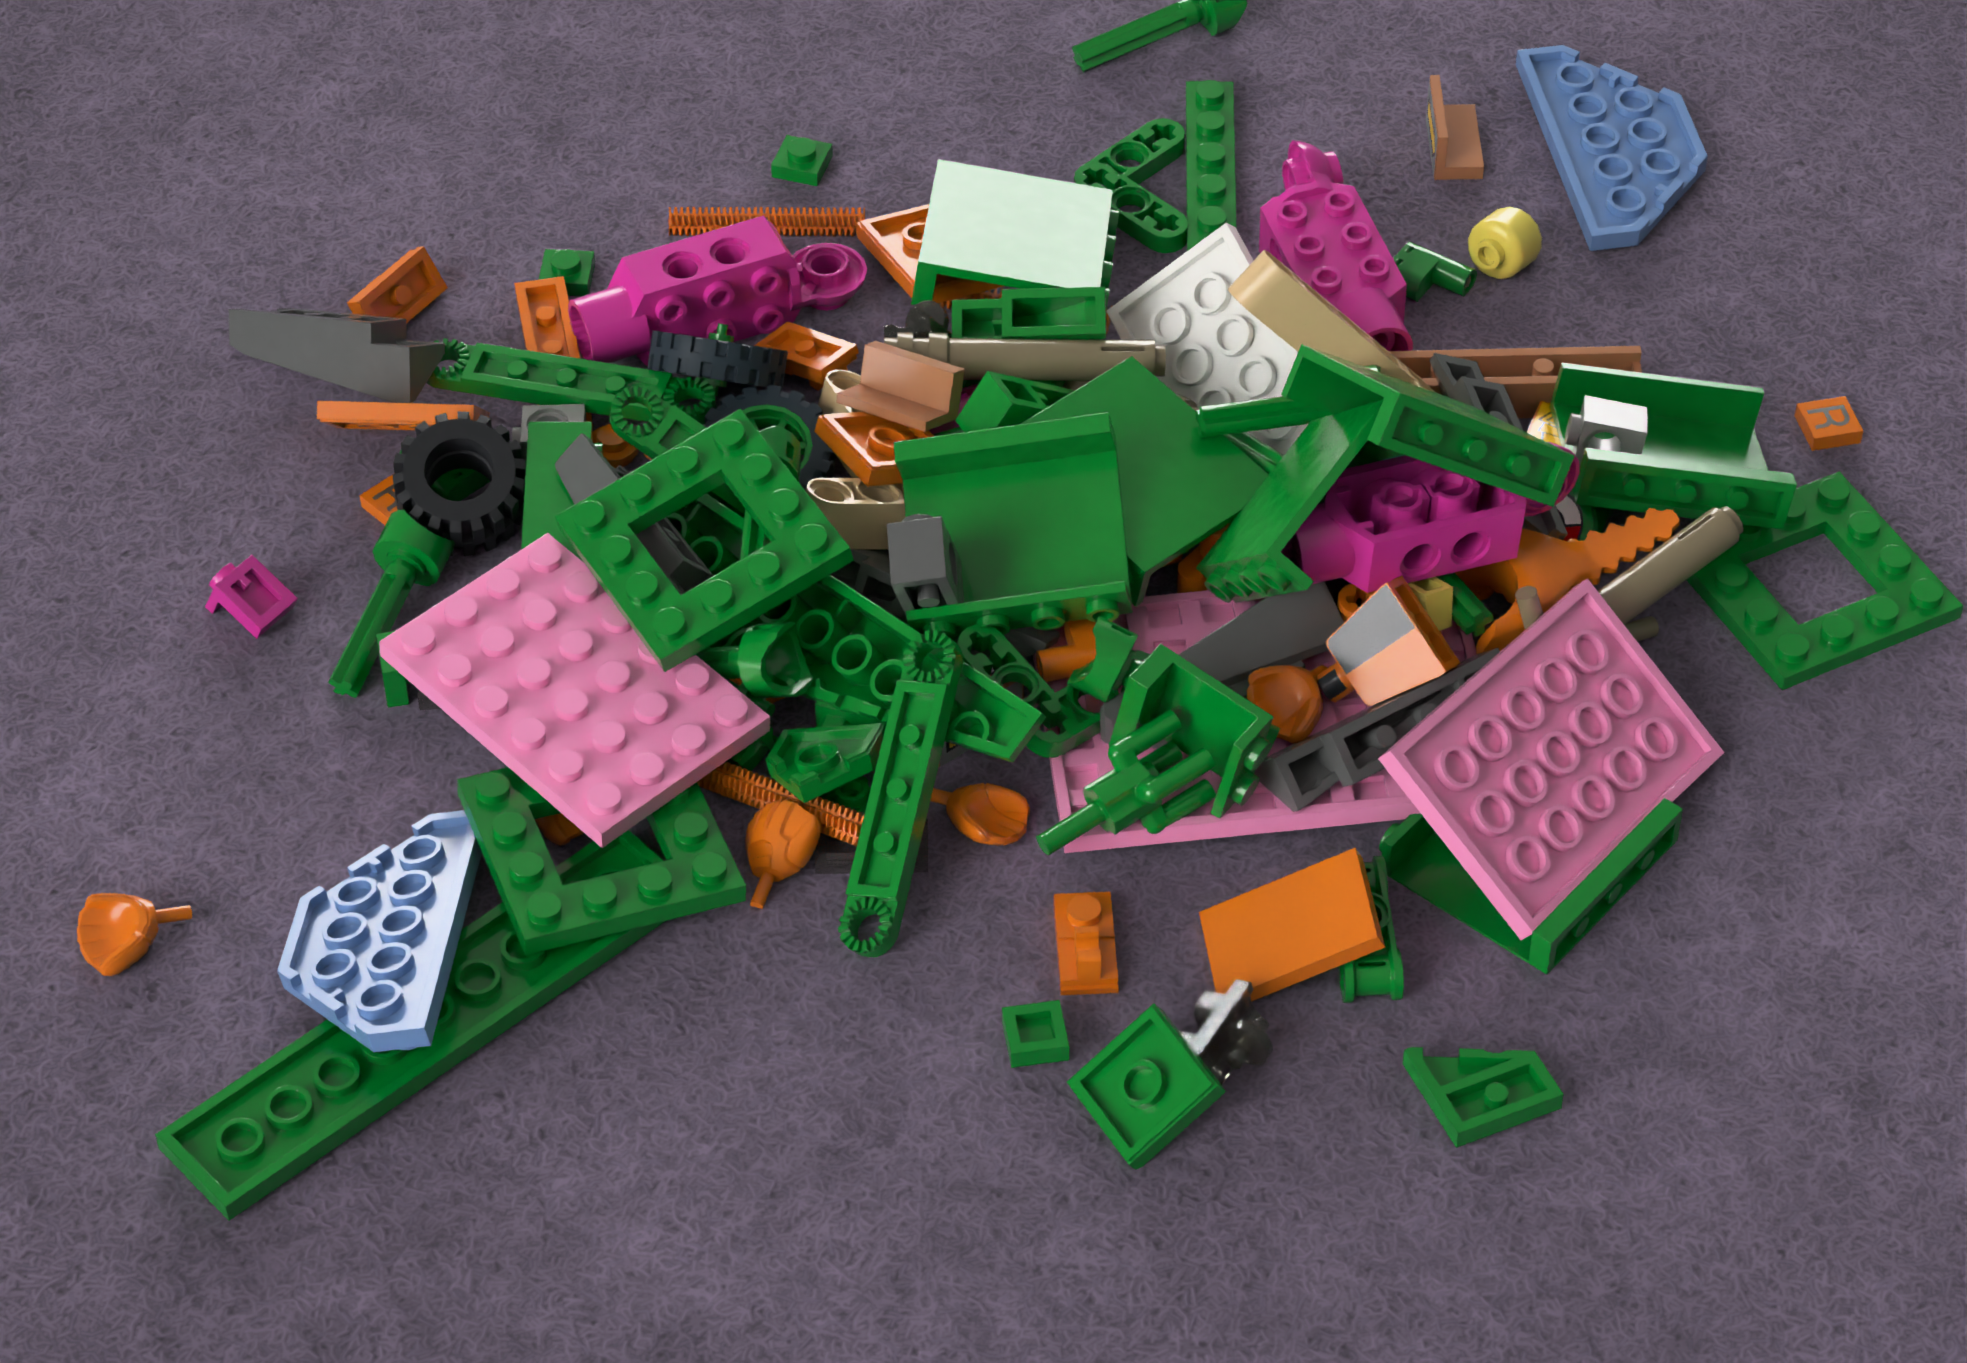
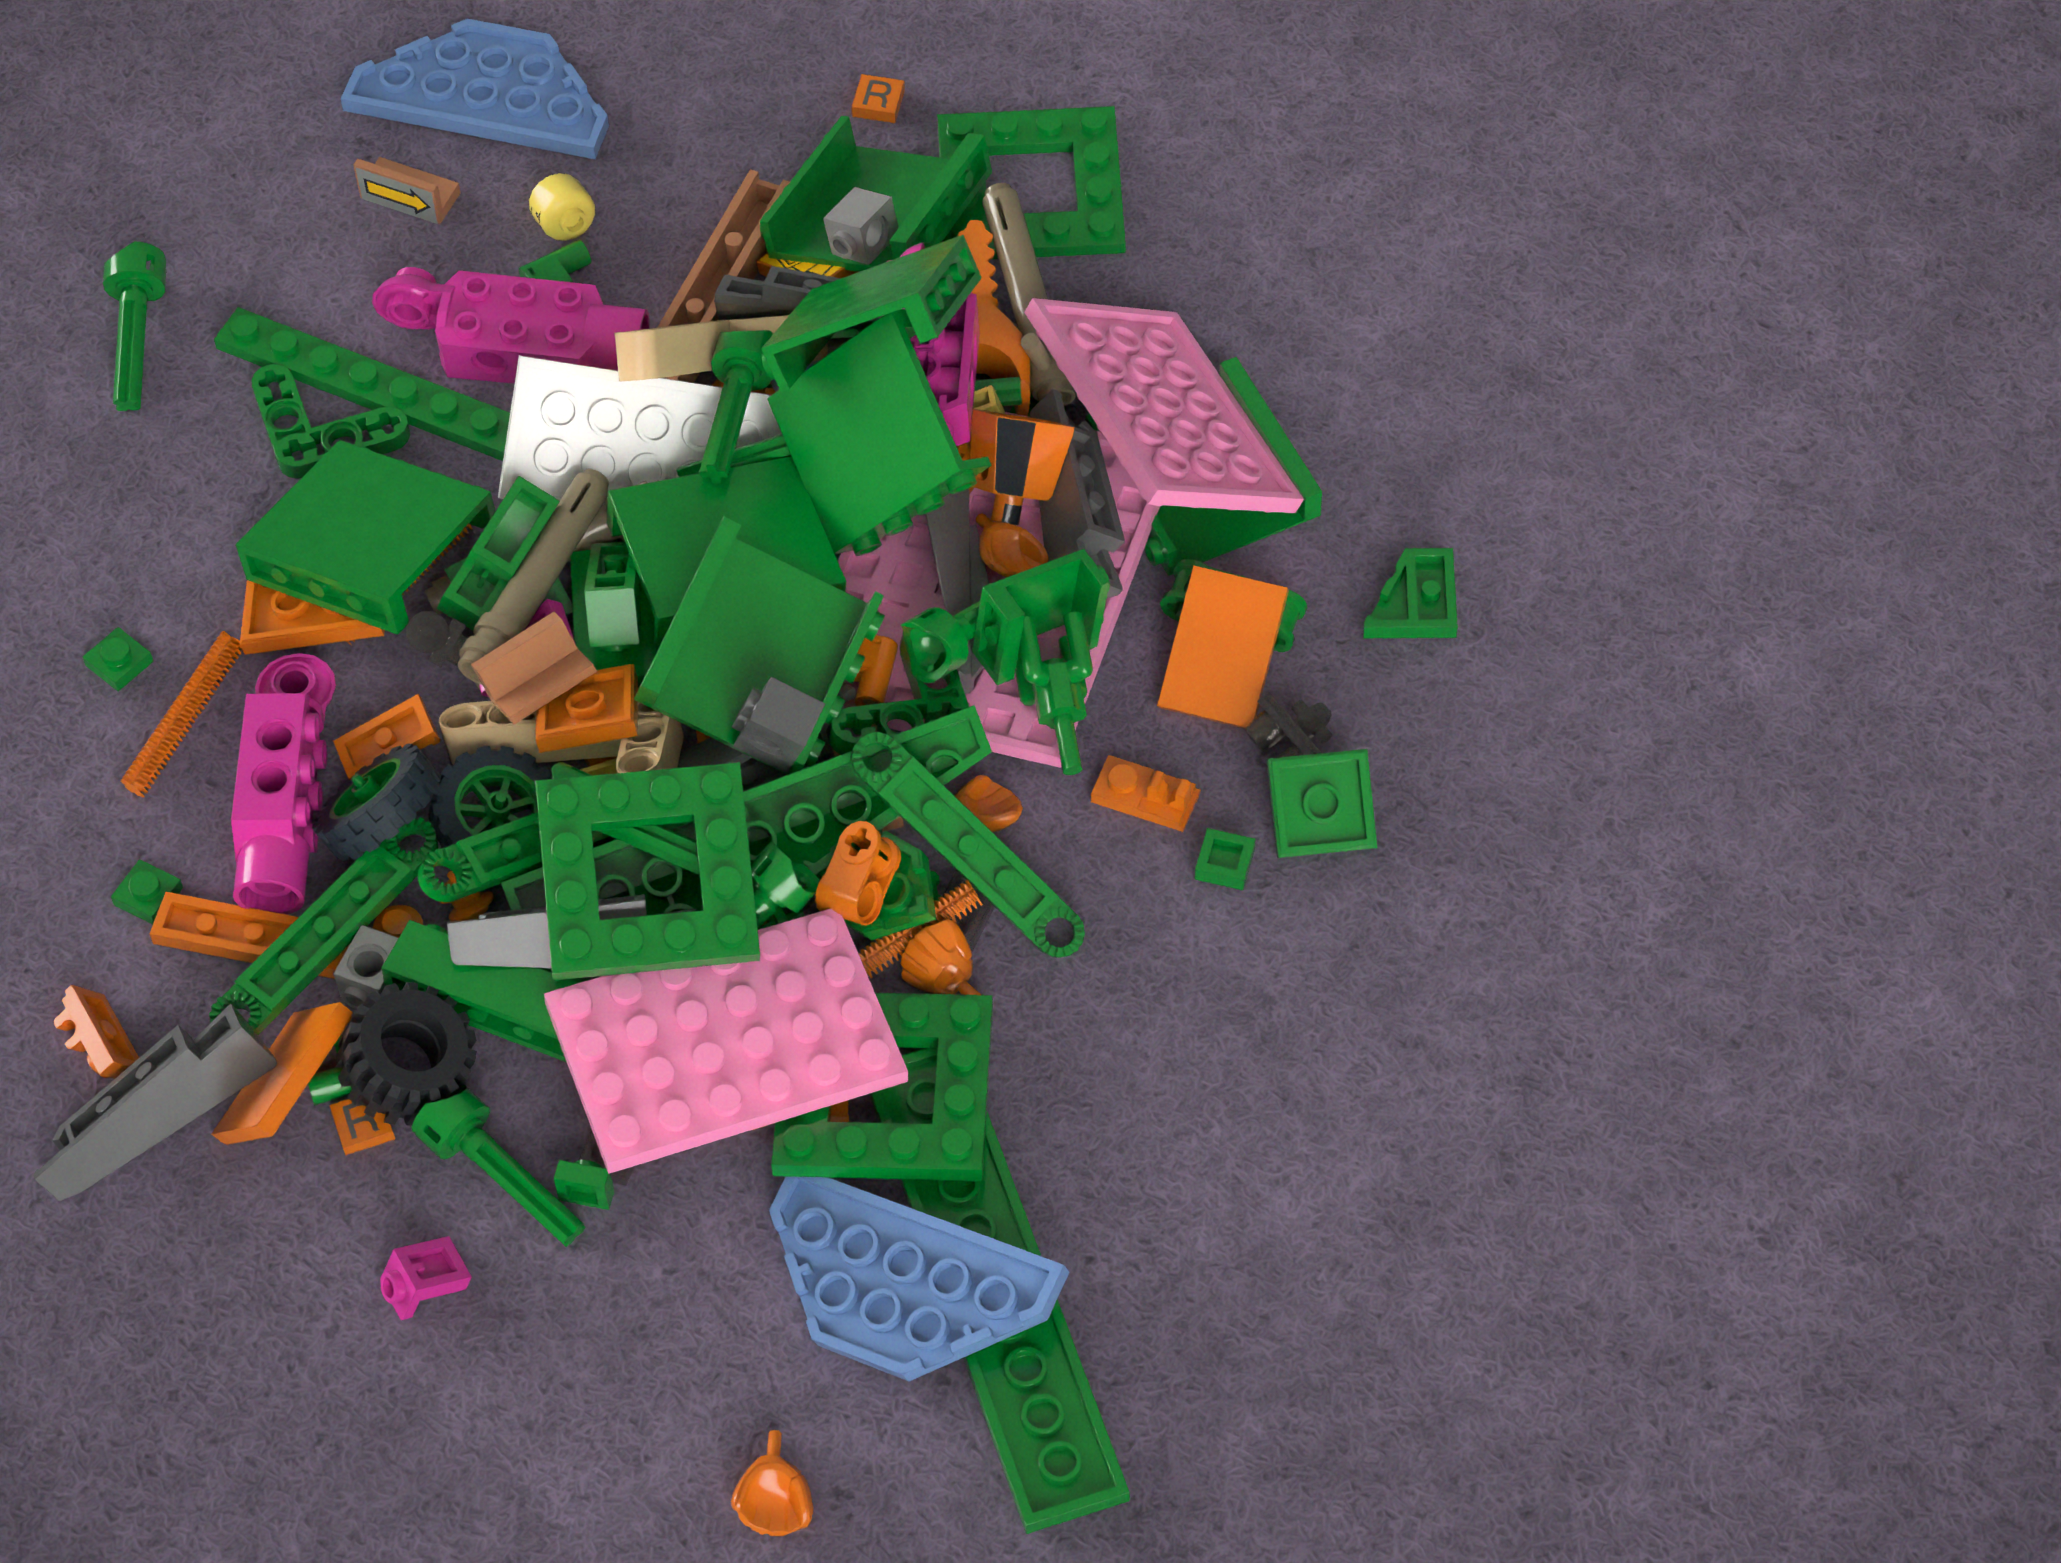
camera: 65 degrees left, 10 degrees up
(823, 715) = (855, 879): none -> orange piece

